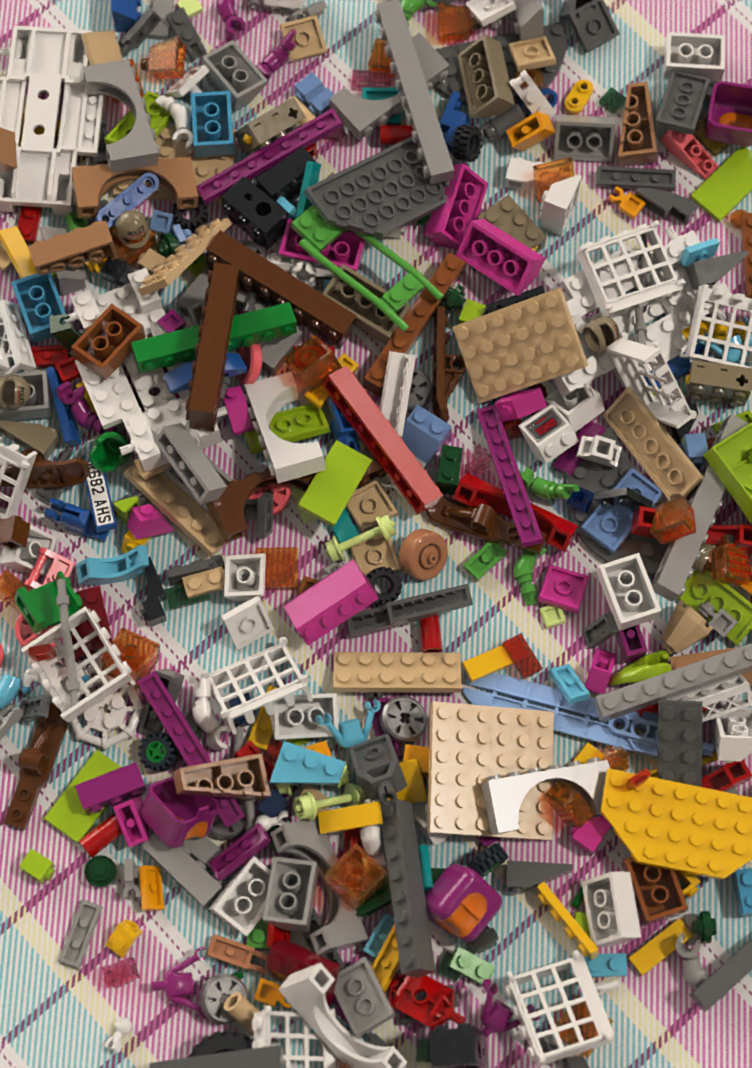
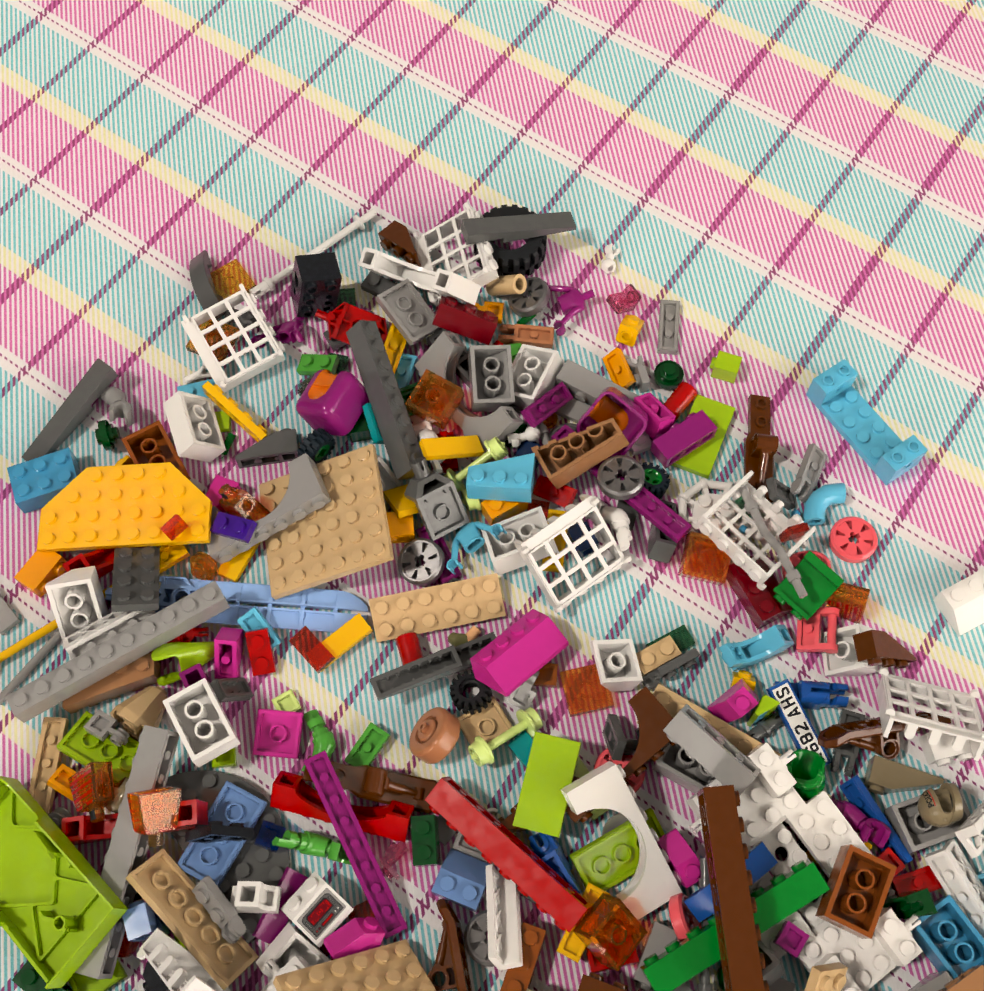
camera: 170 degrees right, 5 degrees down
(152, 607) = (700, 618): black slope -> none
(178, 739) = (618, 488): none -> flat silver wheel
(247, 622) = (600, 620): white tile -> none
(368, 503) = (501, 783): tan tile -> none
(377, 638) = (458, 638): none -> arm
(570, 664) = (260, 651): none -> red plate
(581, 777) = (233, 527): none -> dark purple plate
(629, 449) = (219, 909): none -> light grey hinge
(659, 947) = (148, 414): yellow tile -> none

